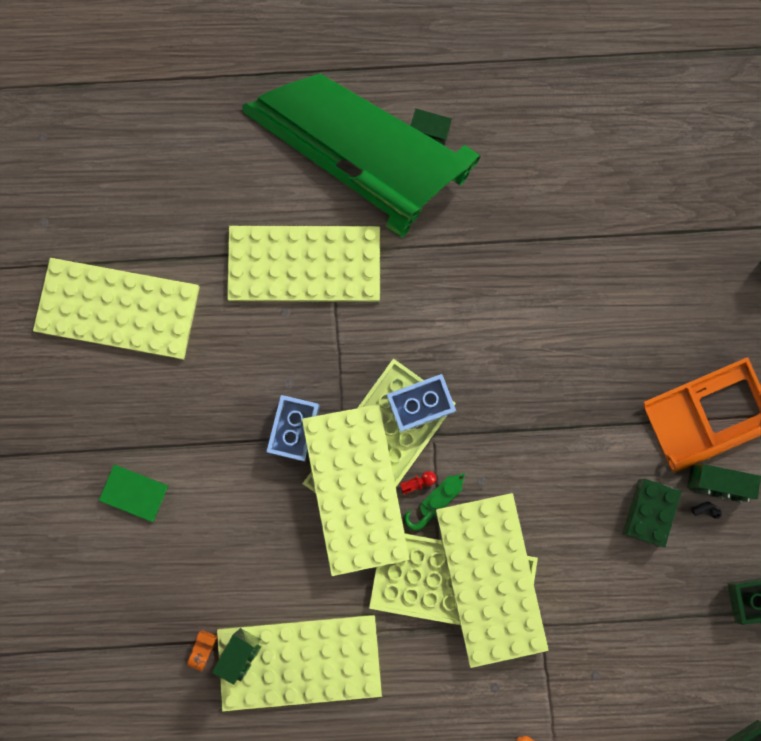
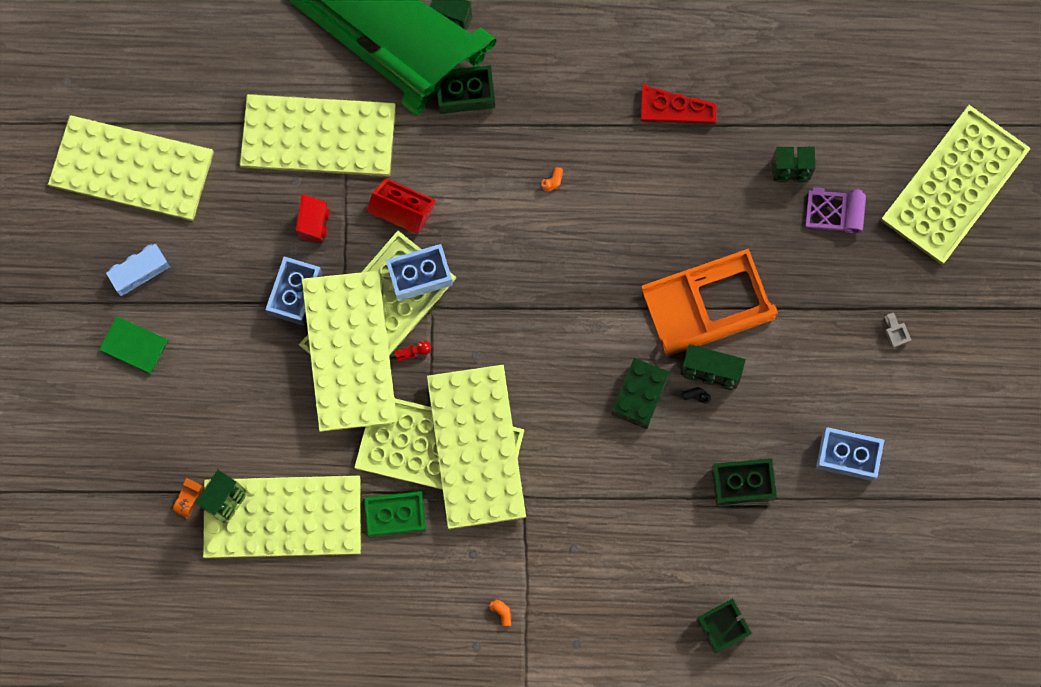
camera: 10 degrees right, 5 degrees down
(131, 414) = (137, 269): none -> light blue brick
(306, 353) = (312, 219): none -> red slope
(394, 332) = (401, 206): none -> red slope
(413, 652) = (395, 514): none -> green tile
(436, 500) = (434, 365): green plate -> none
(452, 209) = (466, 90): none -> dark green brick
(545, 298) = (554, 182): none -> orange arm
(654, 215) = (675, 108): none -> red wing

